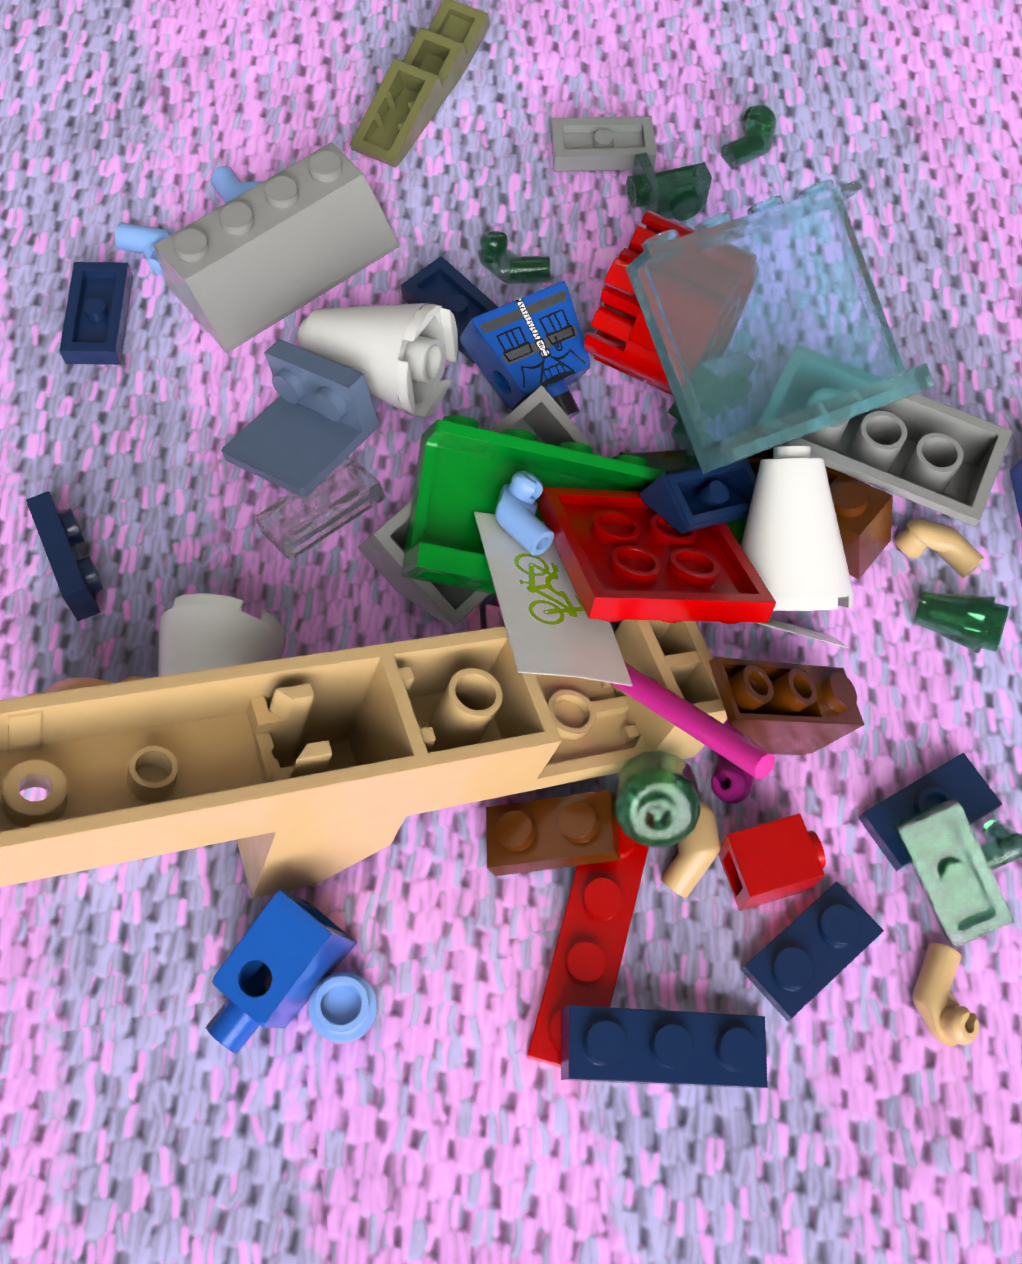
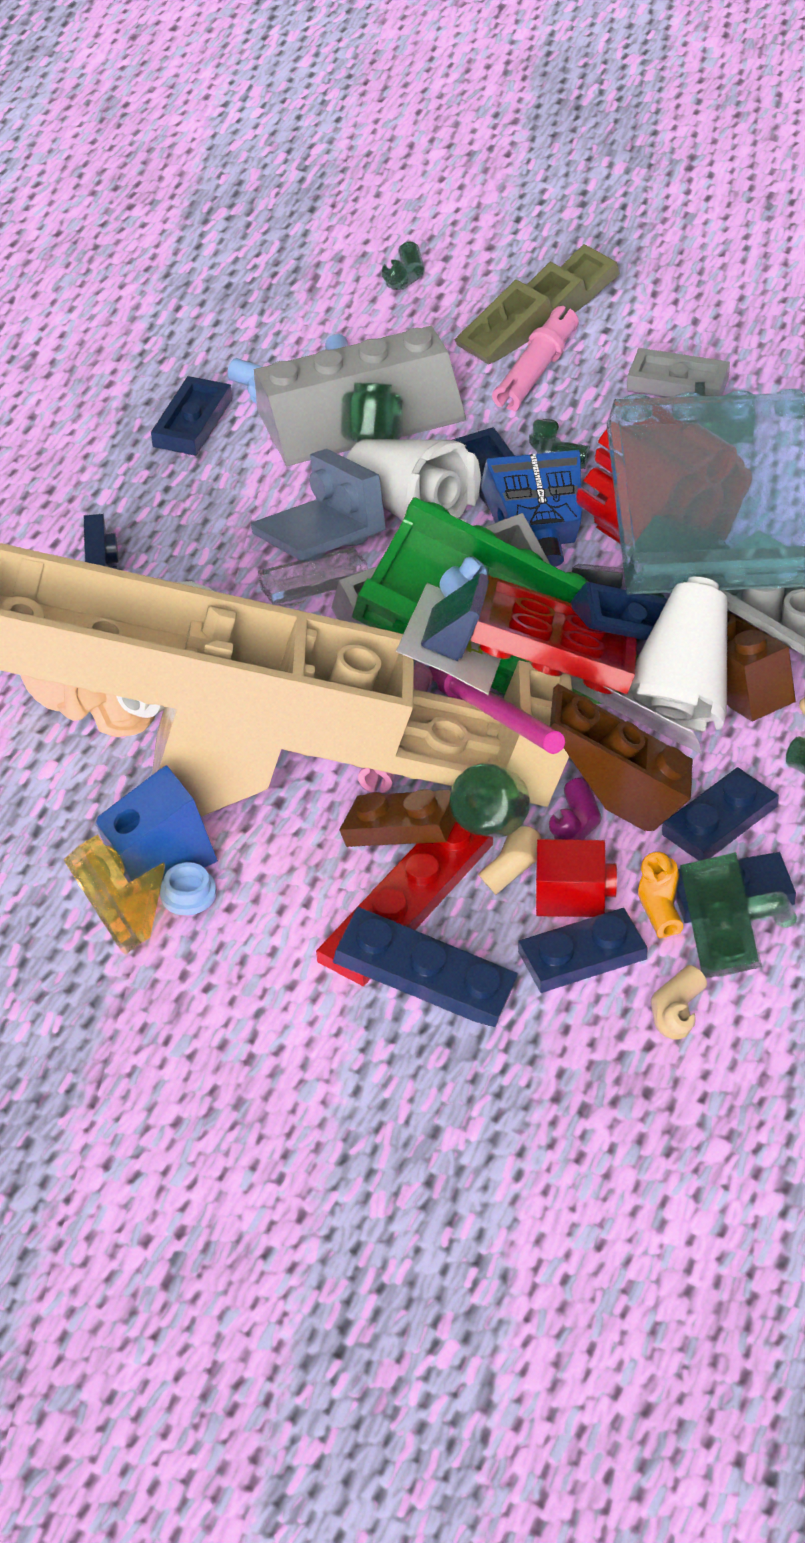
camera: 25 degrees right, 20 degrees down
(264, 61) = (405, 270): none -> clear green arm
(286, 1071) = (122, 906): none -> clear yellow slope
(307, 274) = (371, 412): none -> clear green head
(449, 136) = (544, 346): none -> bright pink pin
(555, 583) = (455, 619): none -> dark blue slope
(629, 430) = (601, 575): none -> black tile
(863, 851) = (658, 893): none -> light orange arm
(886, 701) = (720, 814): none -> dark blue plate

